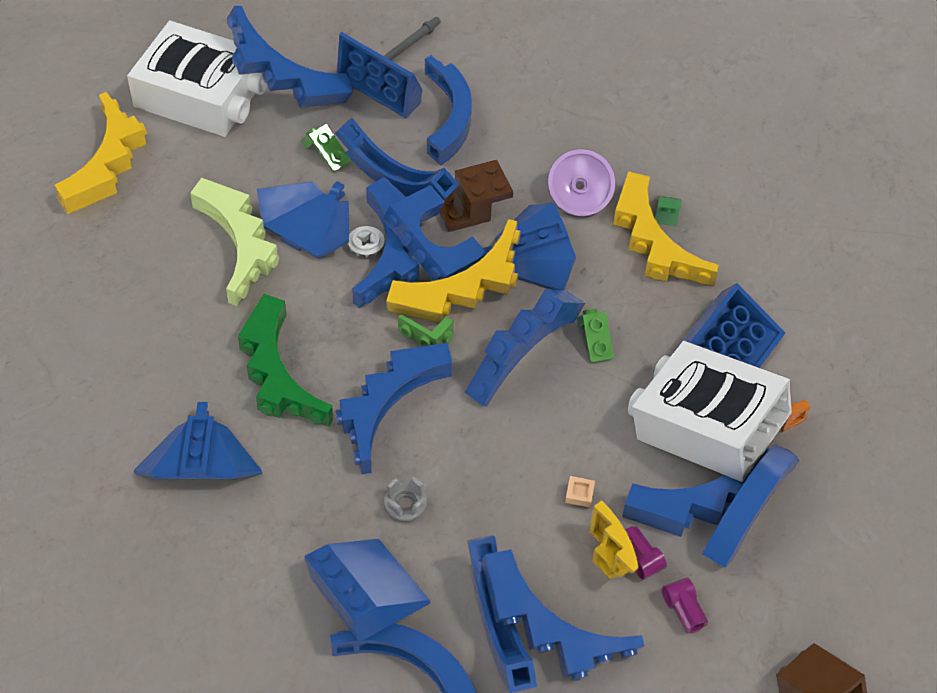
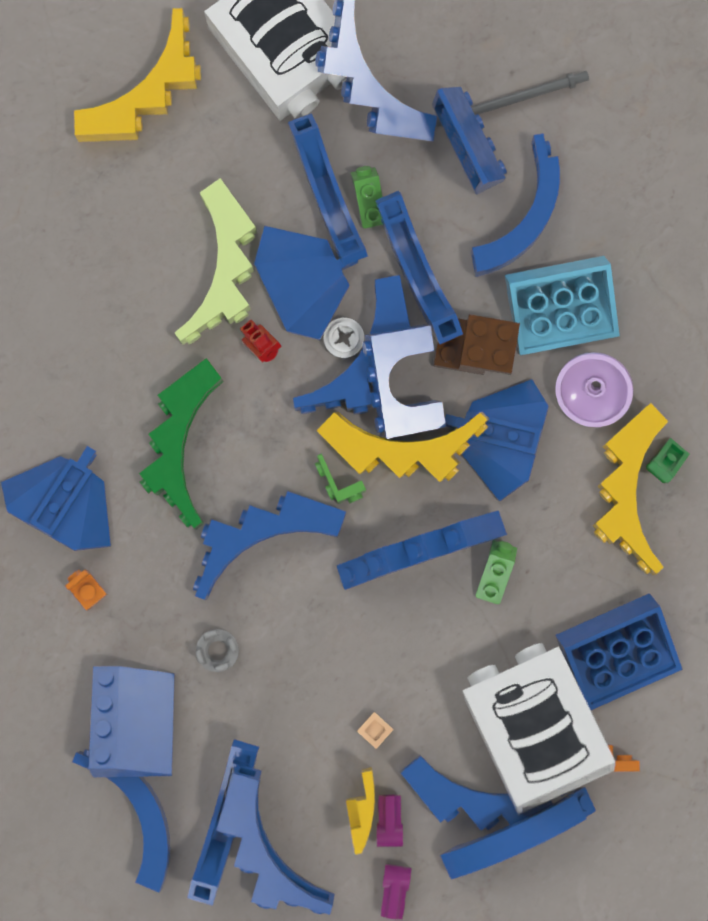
camera: 35 degrees right, 30 degrees up
(258, 511) = (85, 588): none -> orange bracket
(285, 153) = (326, 189): none -> blue arch
(301, 266) = (260, 341): none -> red hips
(522, 144) = (563, 304): none -> medium azure slope

